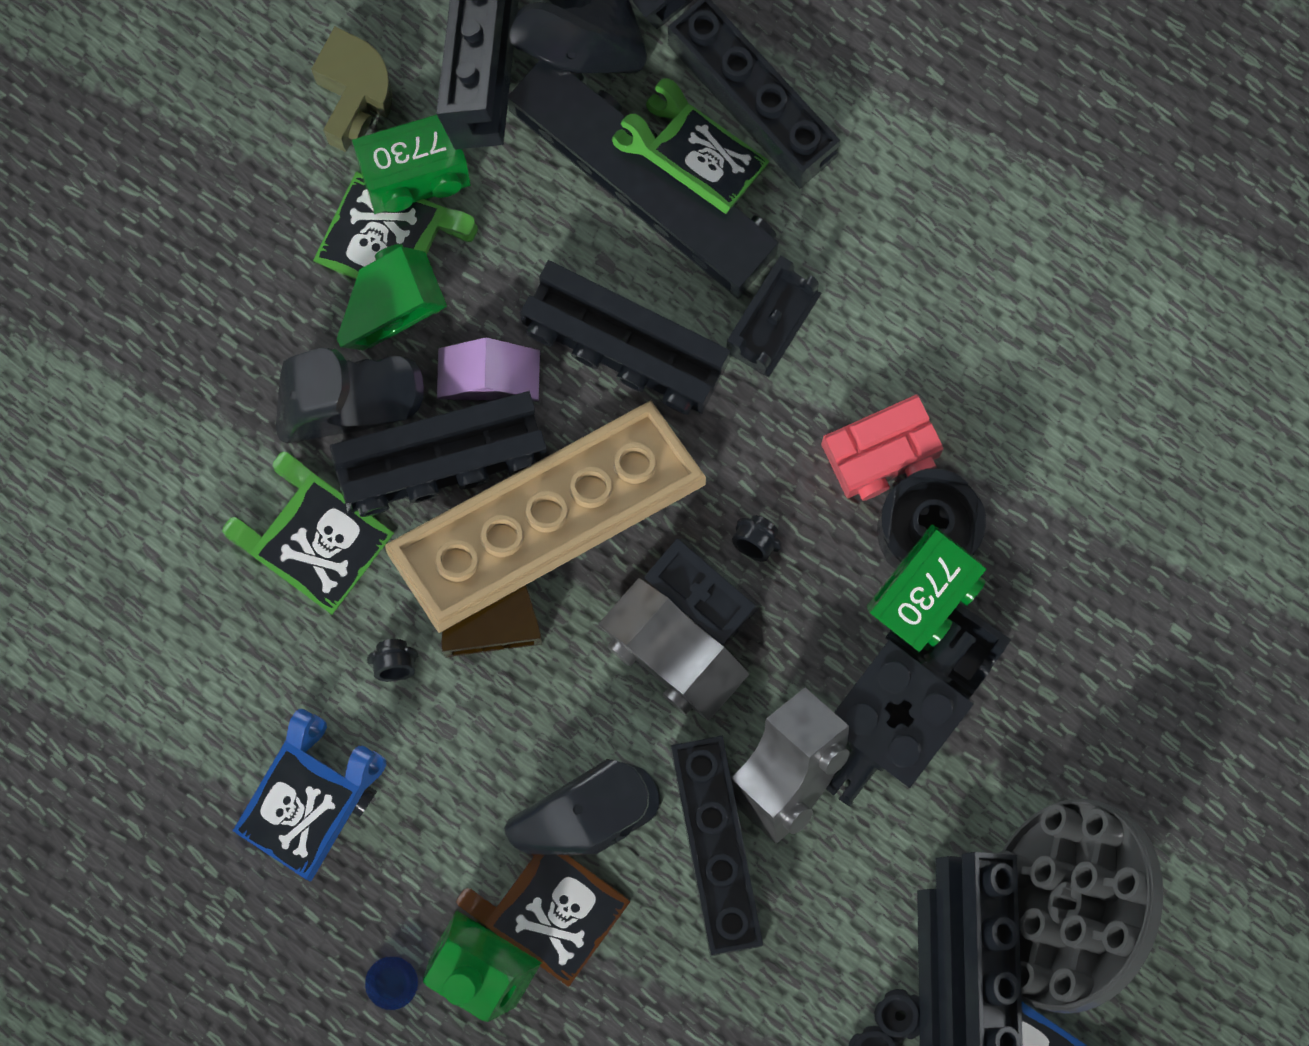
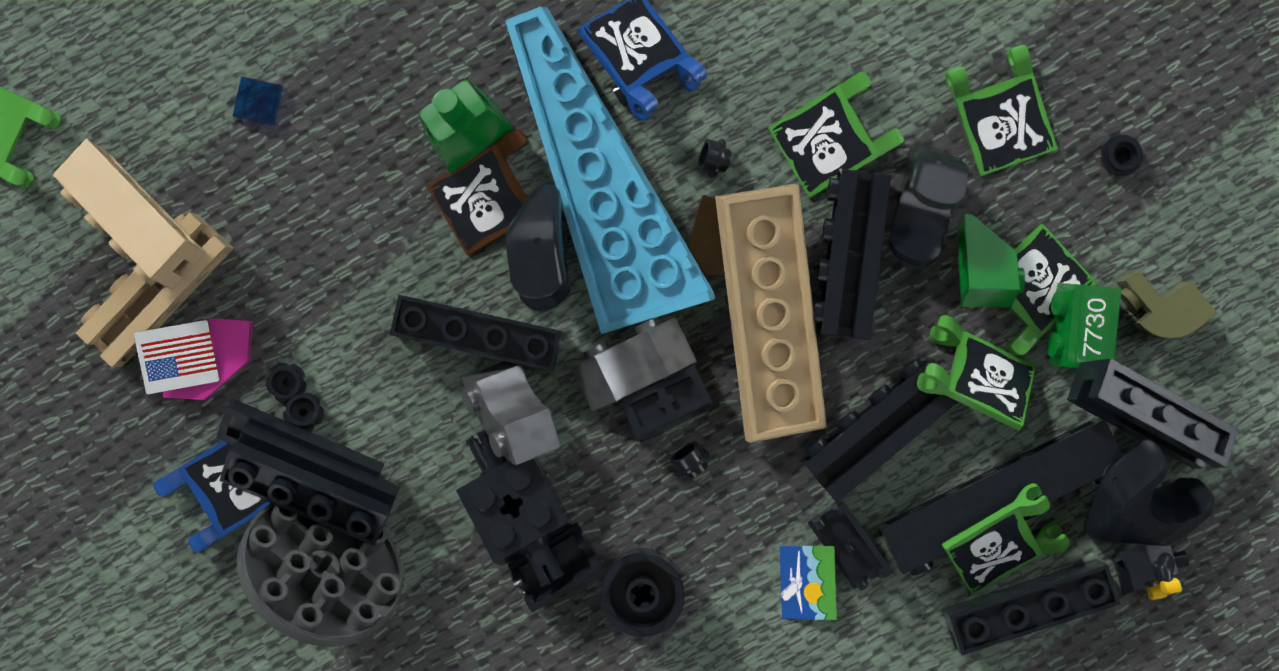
camera: 110 degrees right, 10 degrees up
(199, 189) = (1134, 152): none -> black plate
(211, 350) = (1005, 119): none -> flag
(391, 983) = (482, 60): clear blue plate -> none
(487, 370) = (900, 317): lavender slope -> none
(515, 252) = (980, 375): none -> flag
(518, 736) = (618, 225): none -> medium azure wing
(836, 347) = (808, 582): none -> sticker
(882, 448) = (717, 582): coral brick -> none
(928, 589) = (591, 567): green brick -> none

